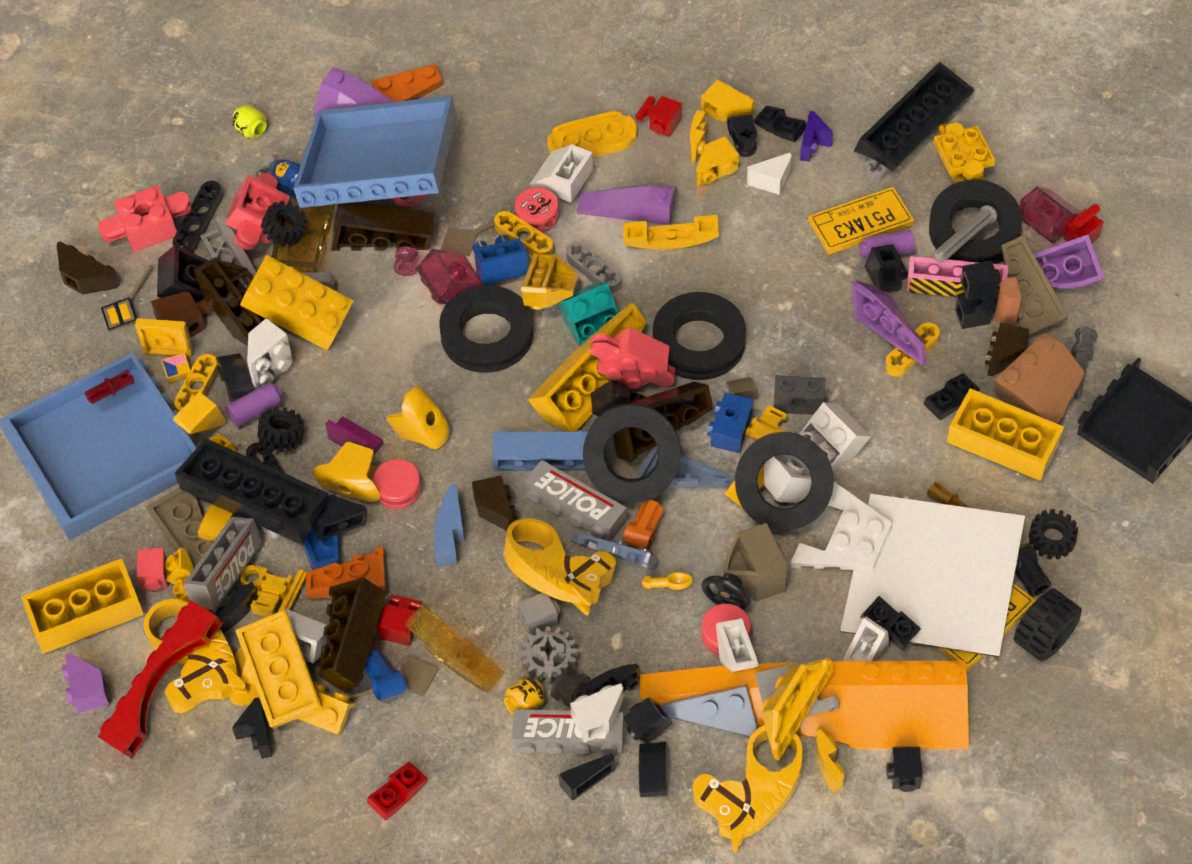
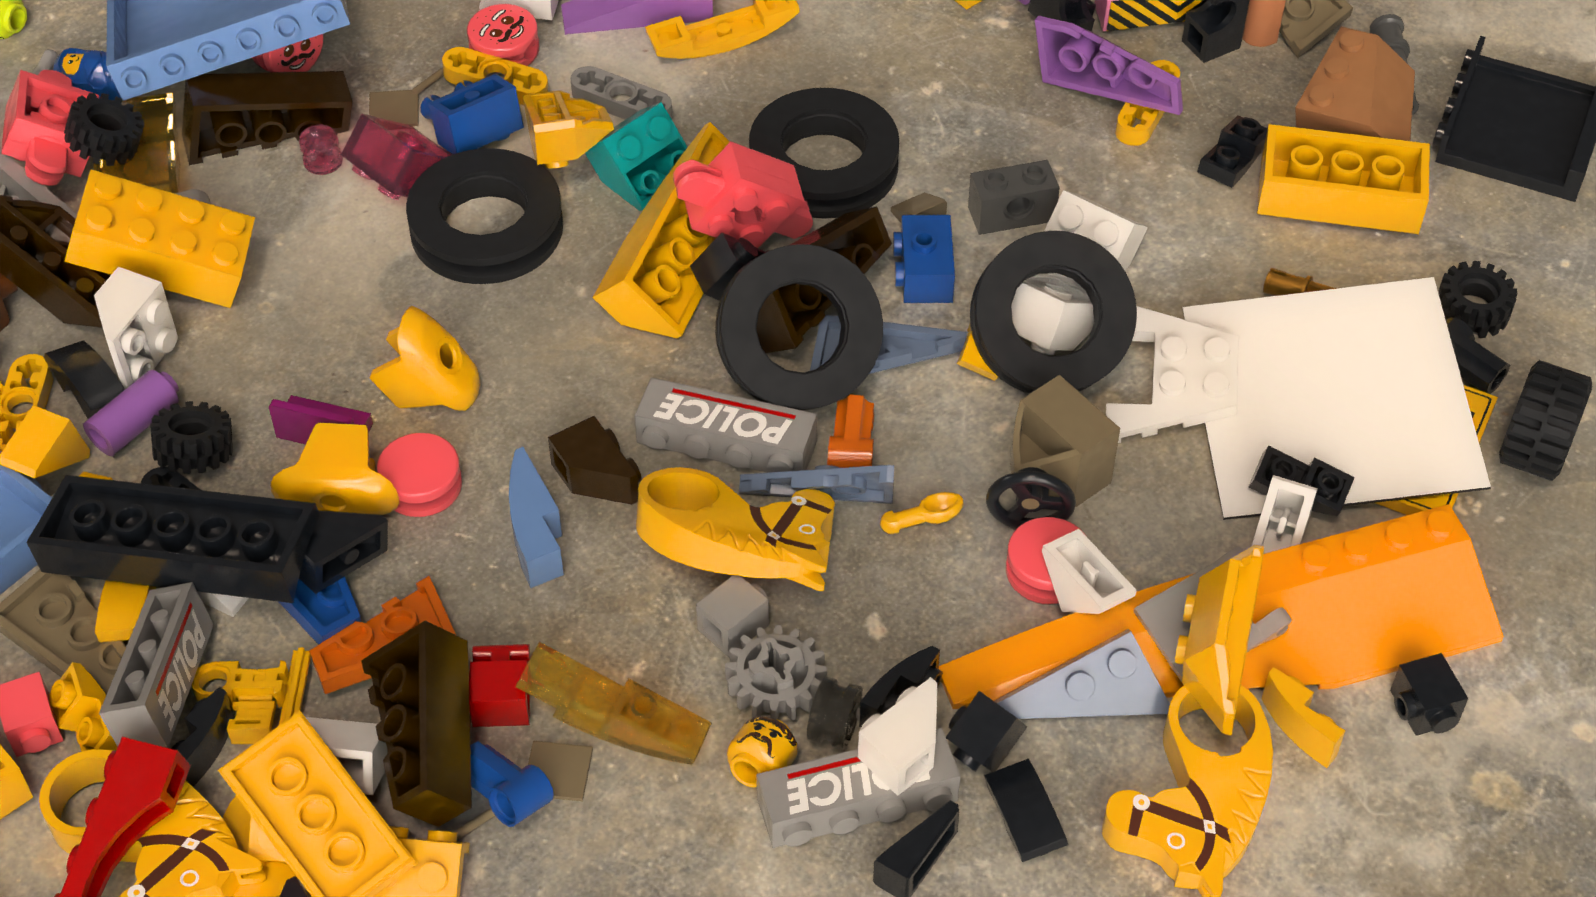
camera: 20 degrees left, 5 degrees down
(526, 449) = (619, 371): medium blue brick -> none
(768, 423) = (979, 249): yellow piece -> none
(1008, 346) = (1285, 68): dark brown slope -> none

